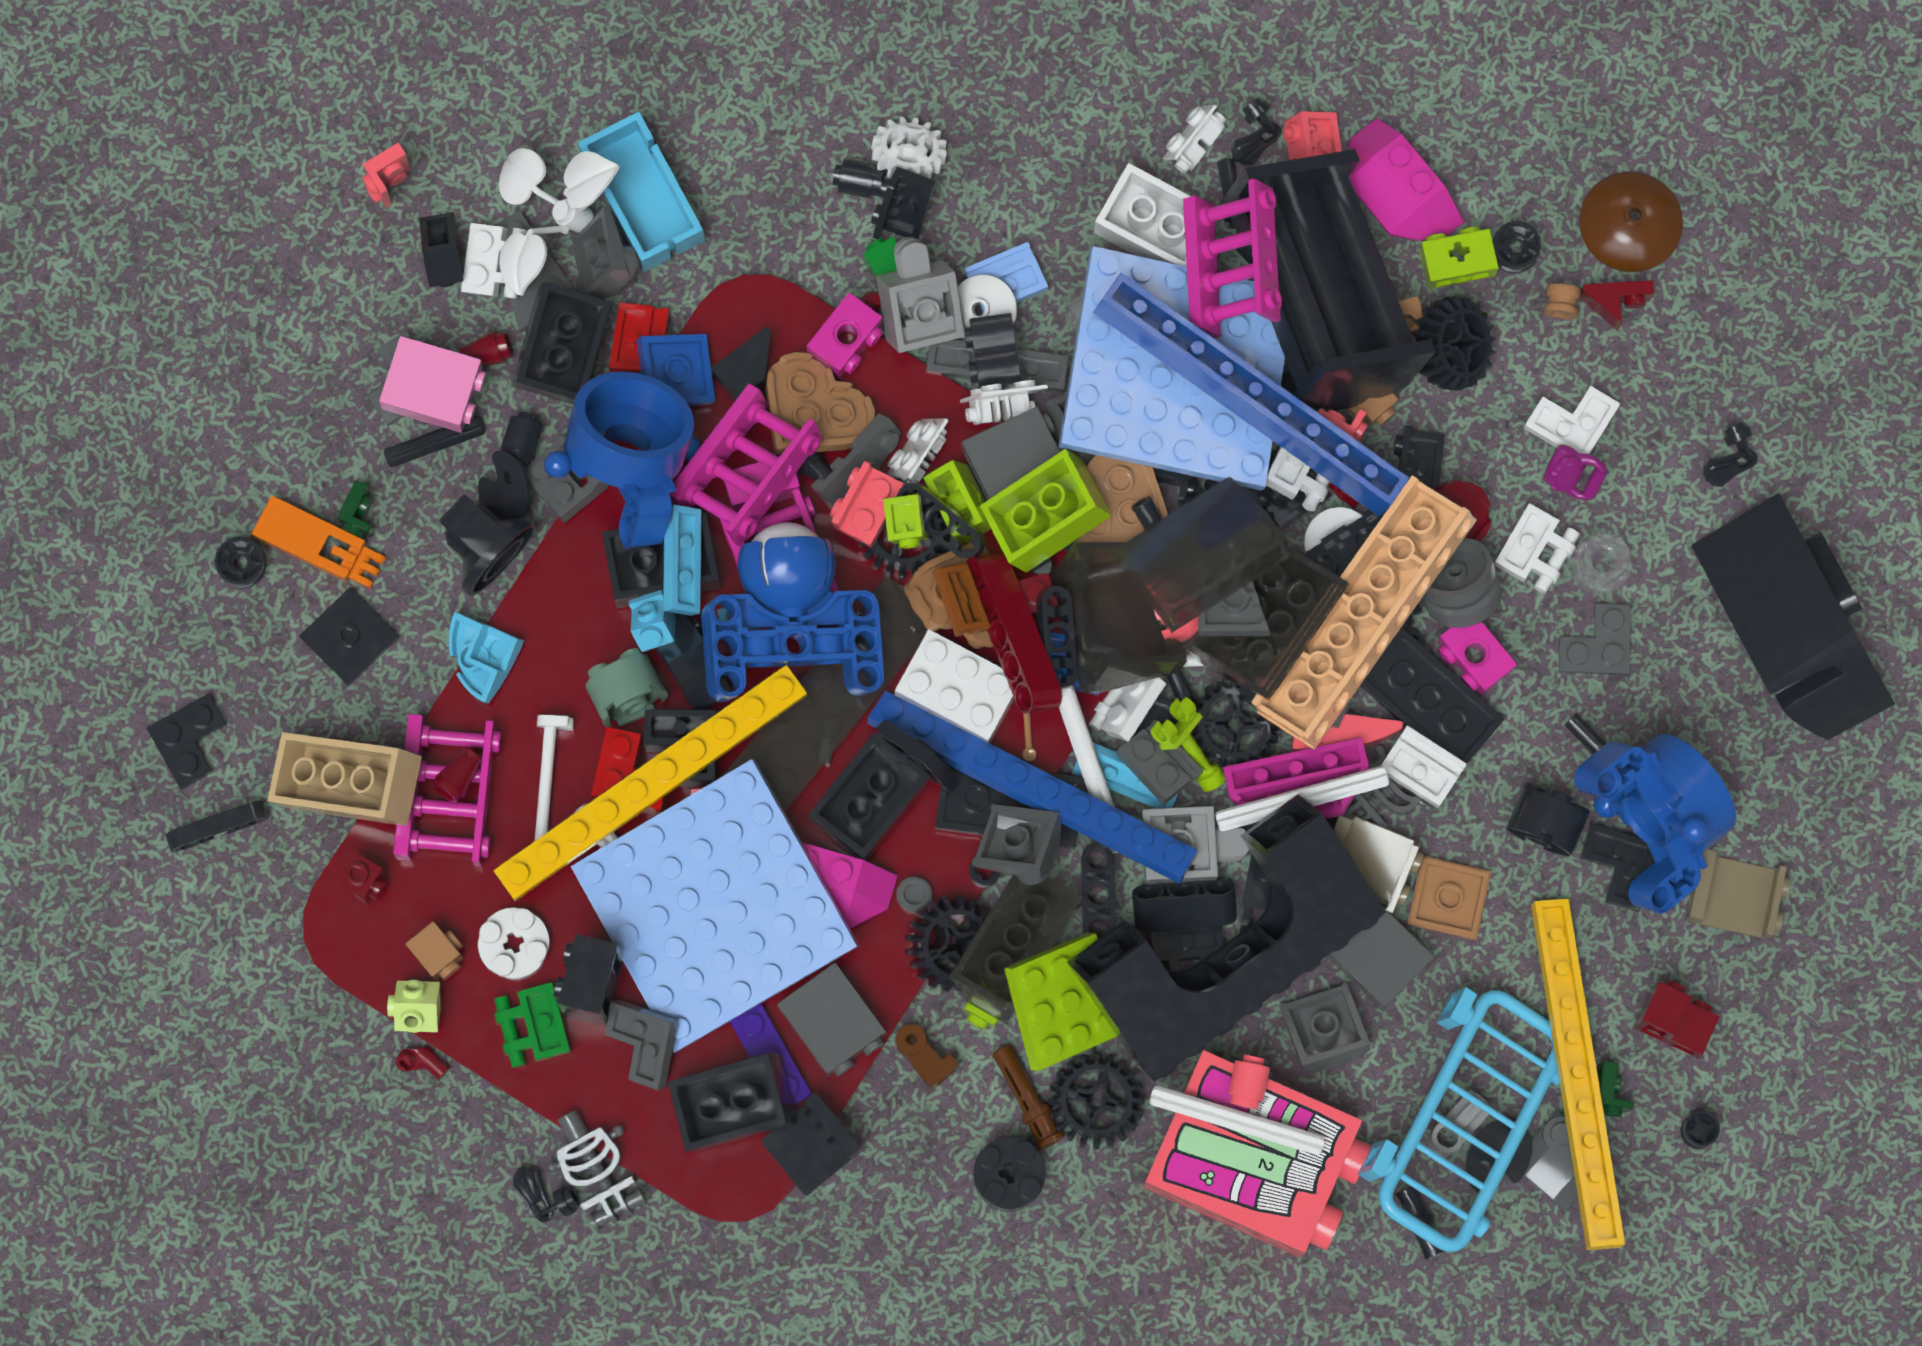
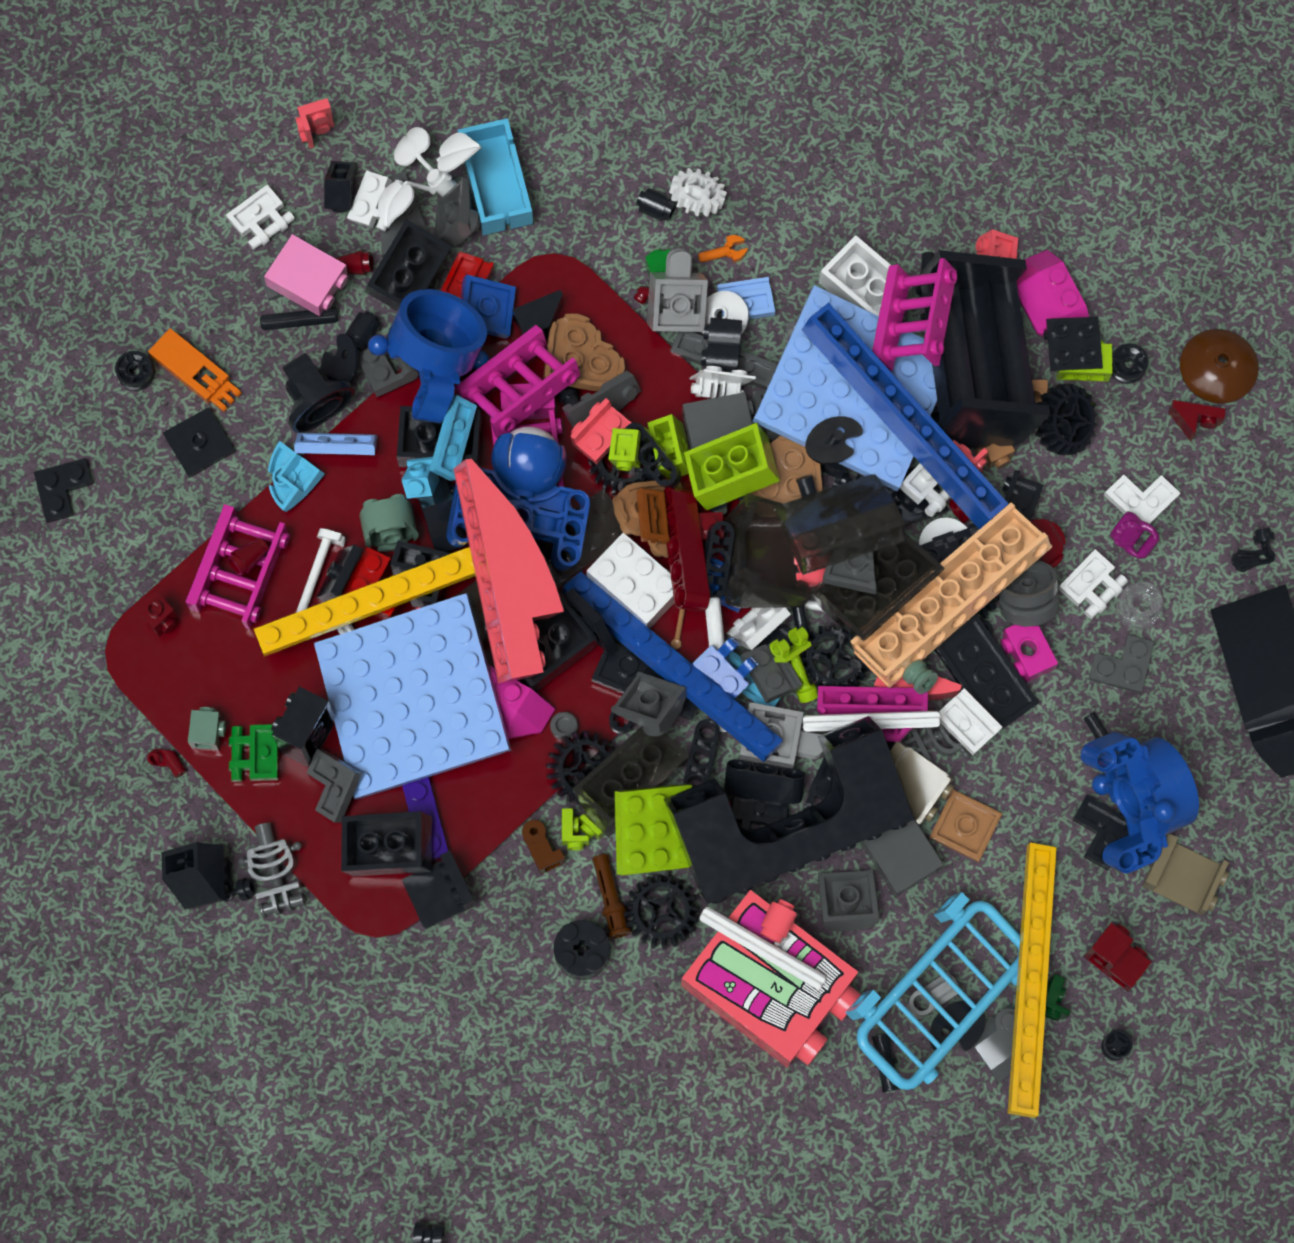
camera: 15 degrees right, 5 degrees down
(205, 829) = (65, 552): black beam -> none
(339, 311) = (257, 210): none -> white plate
(344, 778) = (164, 539): tan brick -> none
(356, 504) = (229, 348): dark green bracket -> none
(415, 1006) = (171, 717): yellowish green brick -> none
(436, 951) = (198, 681): medium nougat brick -> none
(463, 1009) = (206, 729): none -> sand green brick
(500, 1199) = (195, 874): none -> black slope
(506, 962) = (246, 679): white plate -> none
(528, 598) = (335, 443): none -> light blue tile
(580, 769) = (339, 573): none -> black plate
(804, 727) = (509, 575): none -> coral slope
(832, 1021) = (478, 803): dark grey brick -> none
(852, 317) = (622, 298): dark pink brick -> none
(903, 204) = (683, 227): black bracket -> none
(923, 437) = (656, 398): white hinge -> none
(953, 1021) = (570, 826): none -> lime bracket
(962, 219) = (725, 251): none -> orange bar
(1097, 778) = (722, 672): none -> plate
(1162, 455) = (827, 444): none -> black piece
(1185, 146) = (917, 225): white hinge -> none
(1249, 148) = (958, 224): black piece -> none
(1349, 726) = (920, 676): none -> sand green wheel
(1441, 241) = (1073, 343): none -> black hinge
(1548, 819) = (1054, 783): black brick -> none
(1562, 301) = (1154, 410): medium nougat wheel -> none

